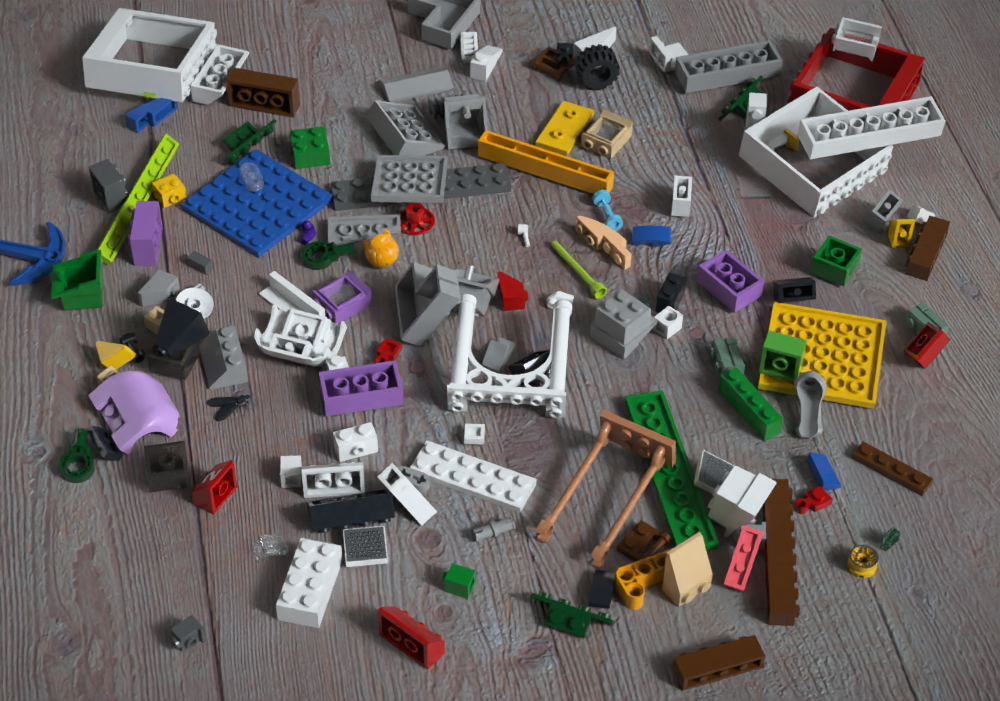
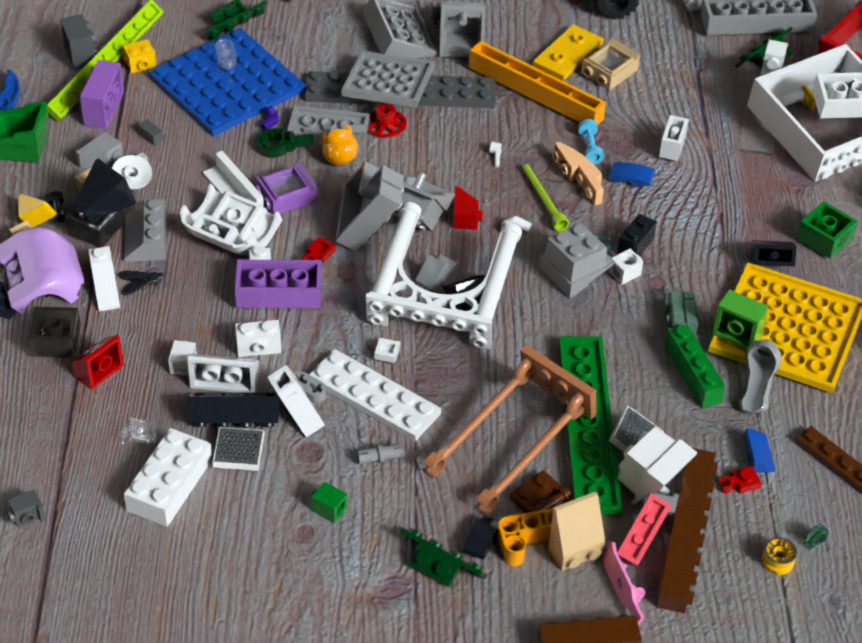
camera: 10 degrees right, 0 degrees up
(197, 408) = (104, 278): none -> white slope
(310, 147) = (295, 34): green brick -> none
(410, 636) = (259, 551): red slope -> none
(726, 598) = (626, 592): none -> bright pink piece
(730, 281) = (704, 233): medium lavender brick -> none

